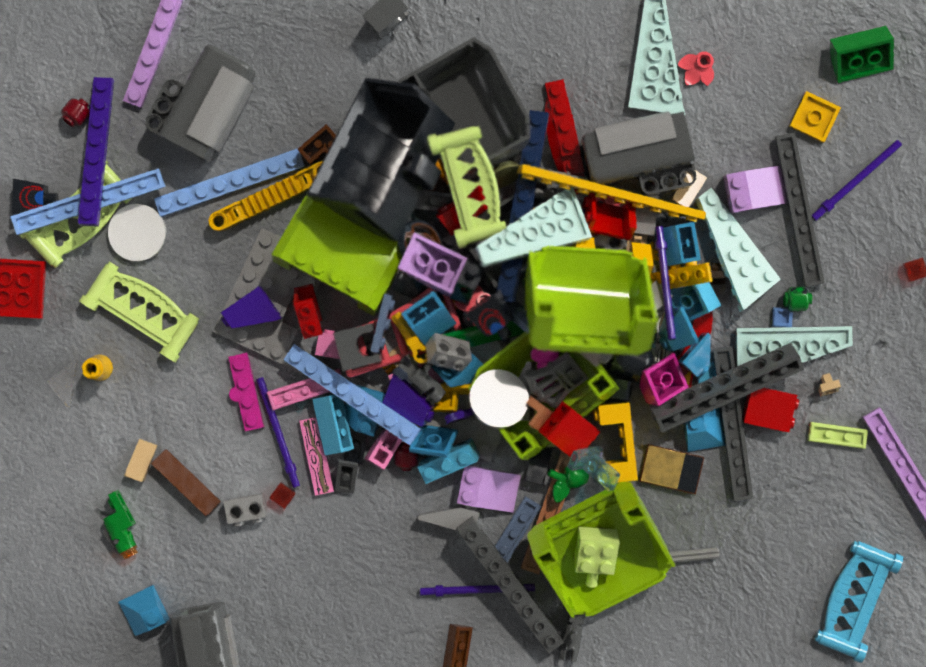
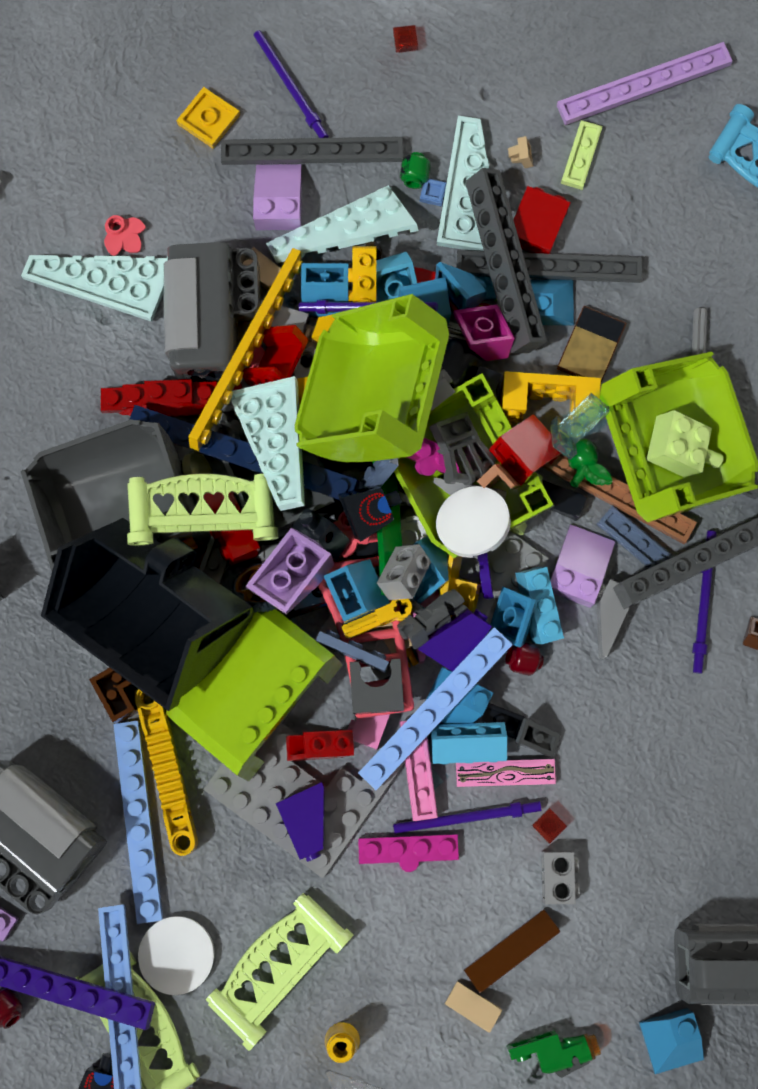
camera: 80 degrees left, 10 degrees down
(383, 449) = (510, 684): bright pink slope -> none
(862, 54) = (147, 53): green slope -> none

